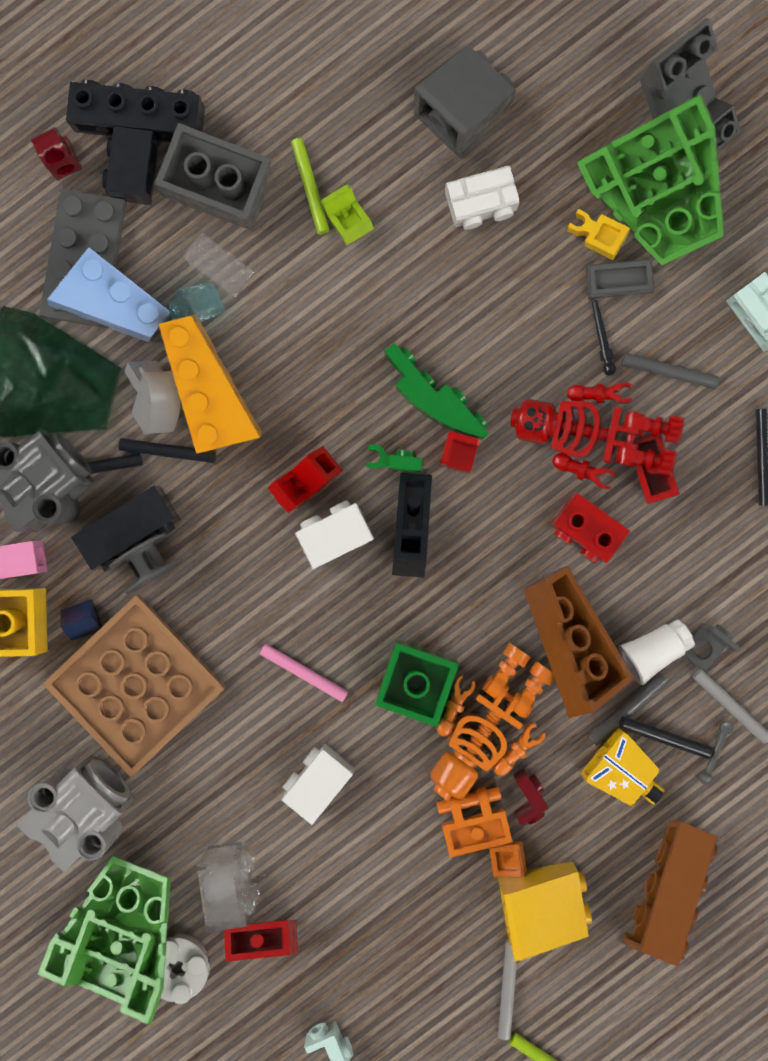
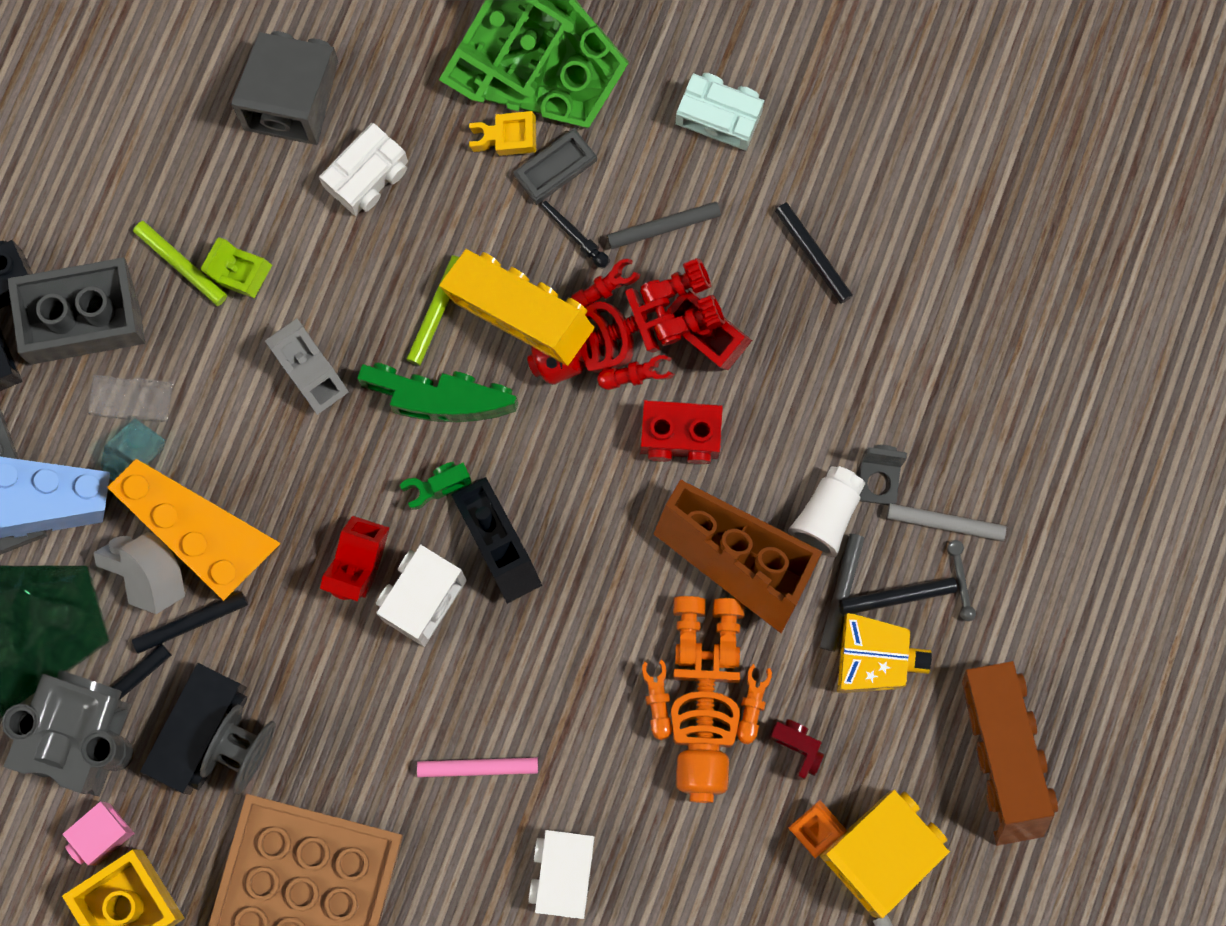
camera: 30 degrees left, 10 degrees down
(80, 620) = (201, 861): dark blue slope -> none
(353, 319) = (306, 366): none -> light grey brick
(416, 683) = (601, 697): green brick -> none
(459, 452) = (499, 434): red panel -> none
(470, 333) = (430, 321): none -> lime bar
(475, 831) = (765, 820): orange plate -> none
(530, 369) = (518, 306): none -> yellow brick

